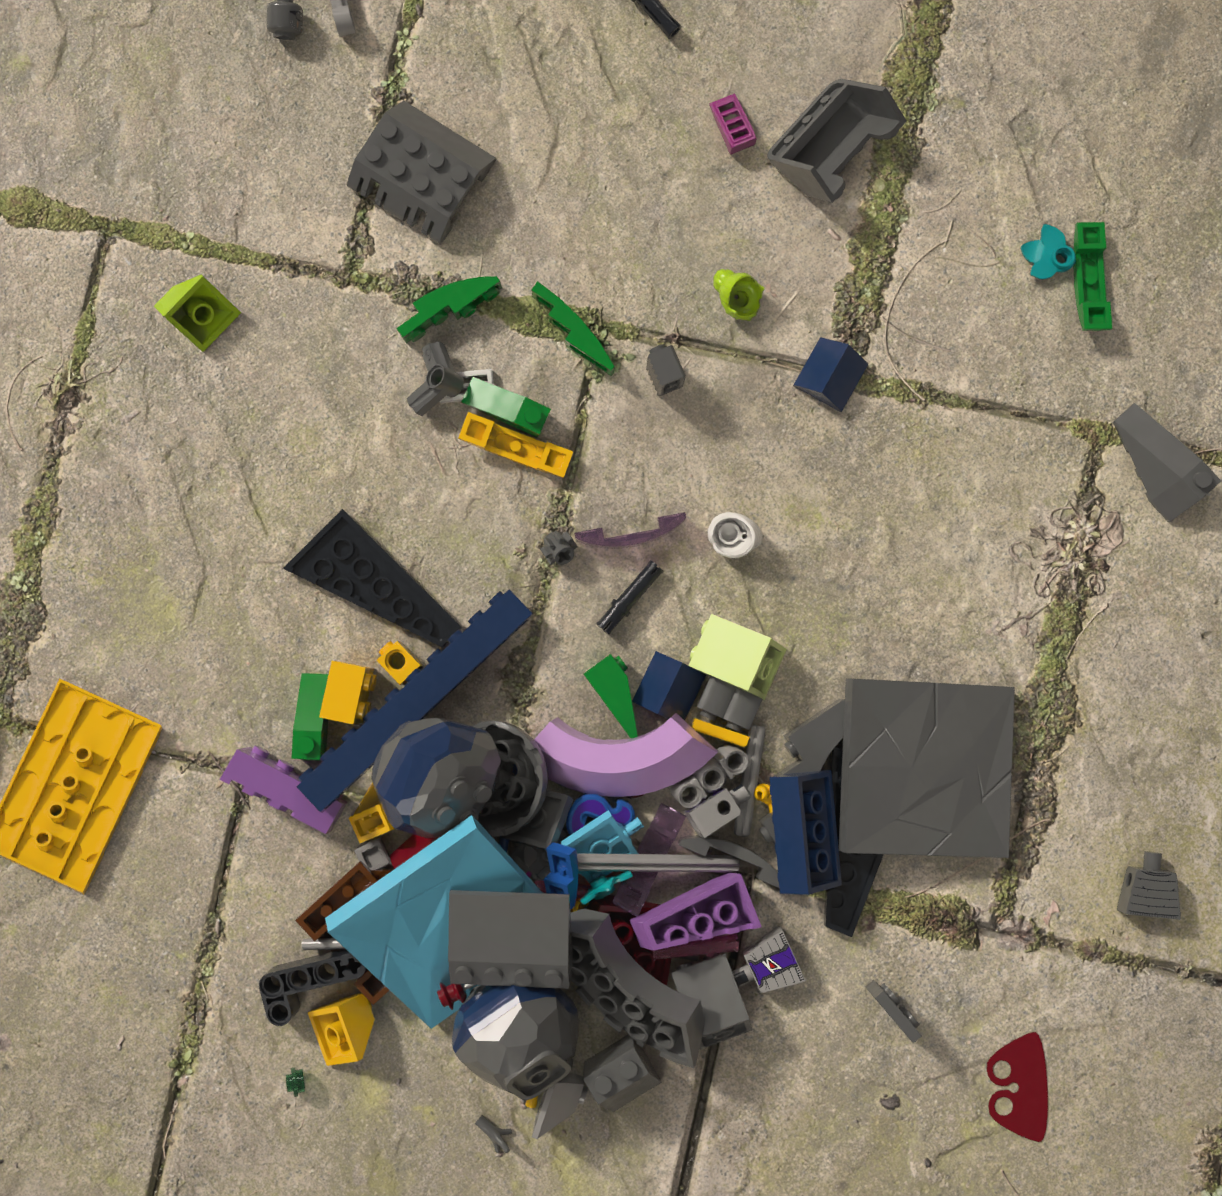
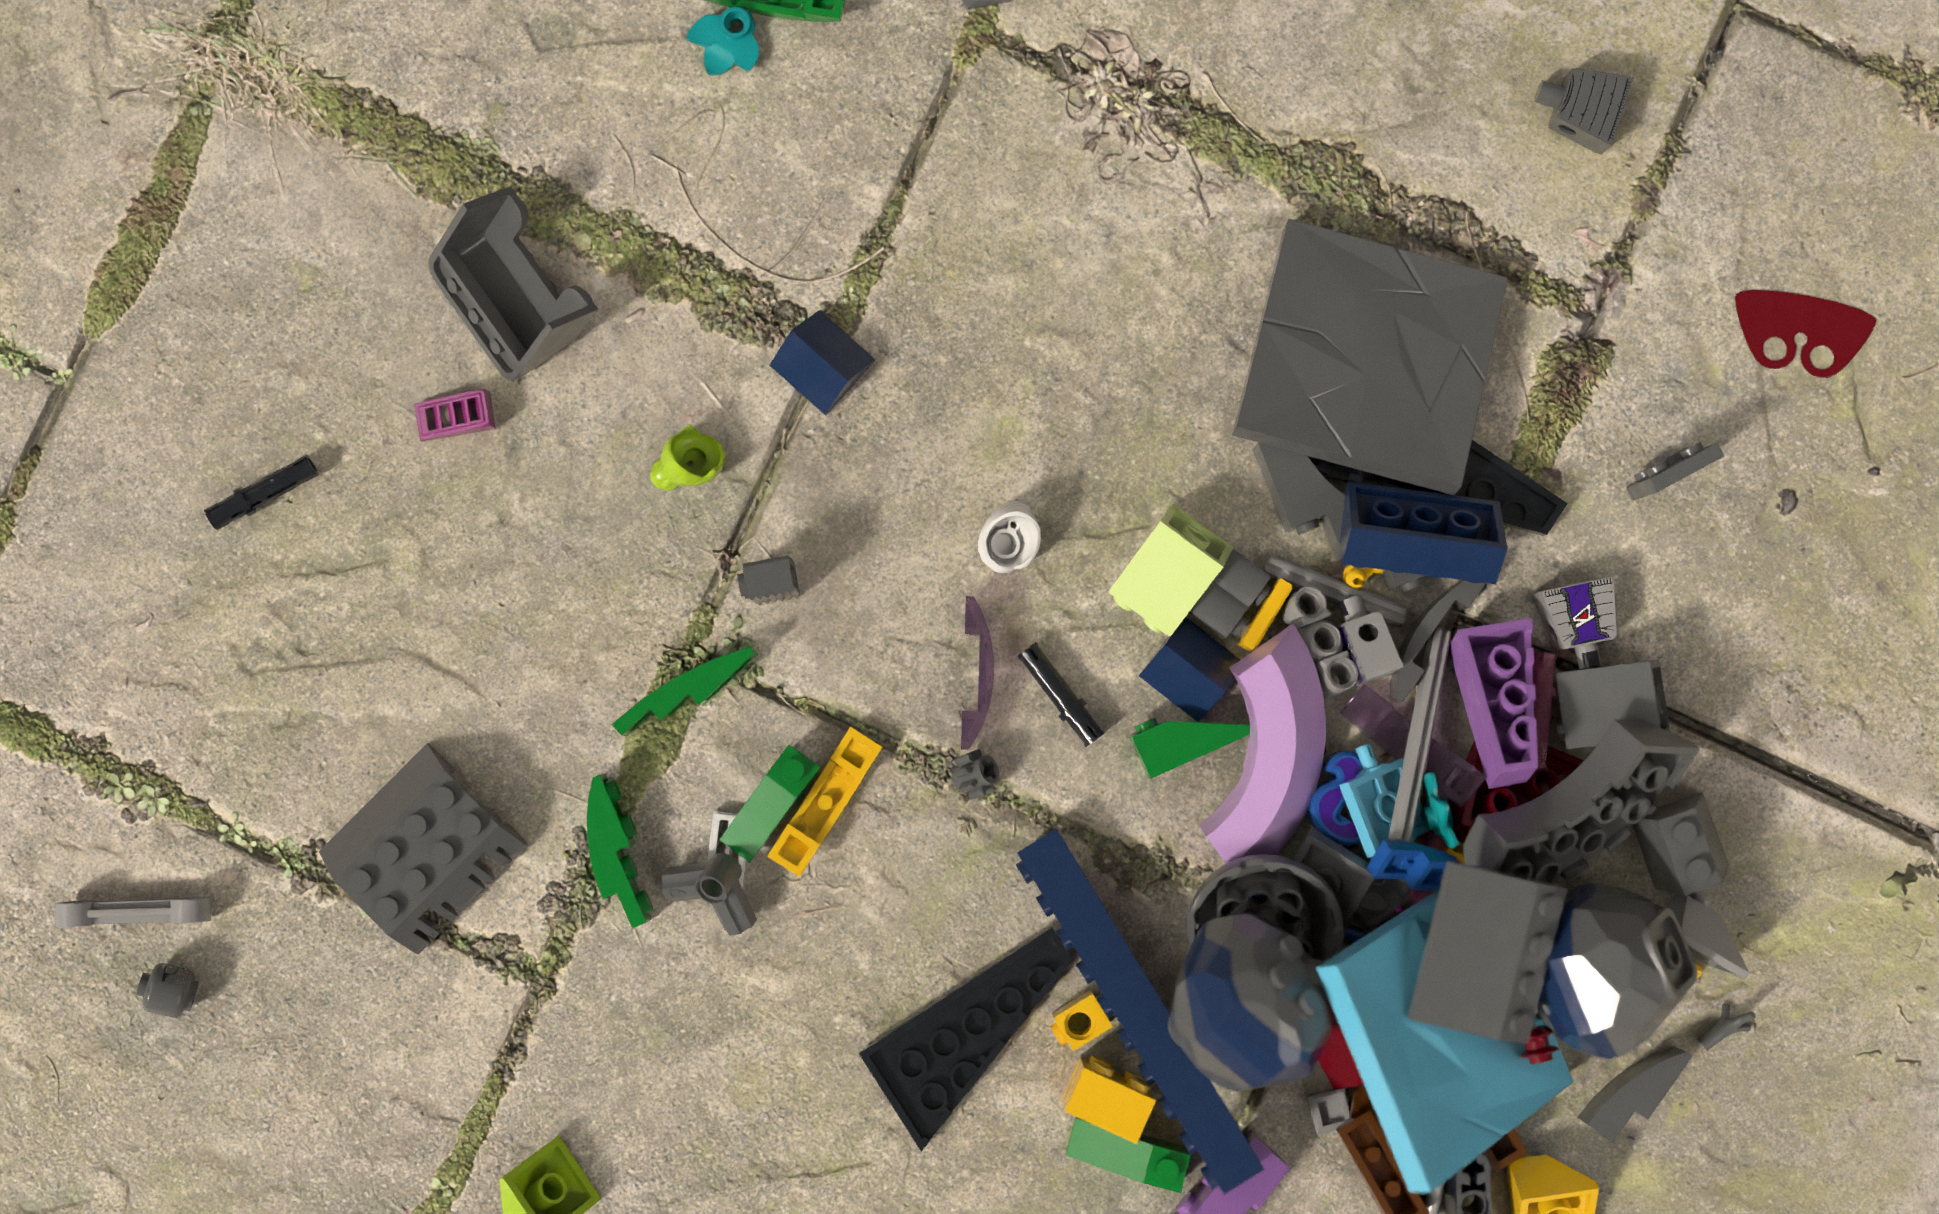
camera: 75 degrees left, 0 degrees up
(369, 818) = (1279, 1105): yellow slope -> none
(434, 1075) = (1634, 1090): none -> dark grey slope

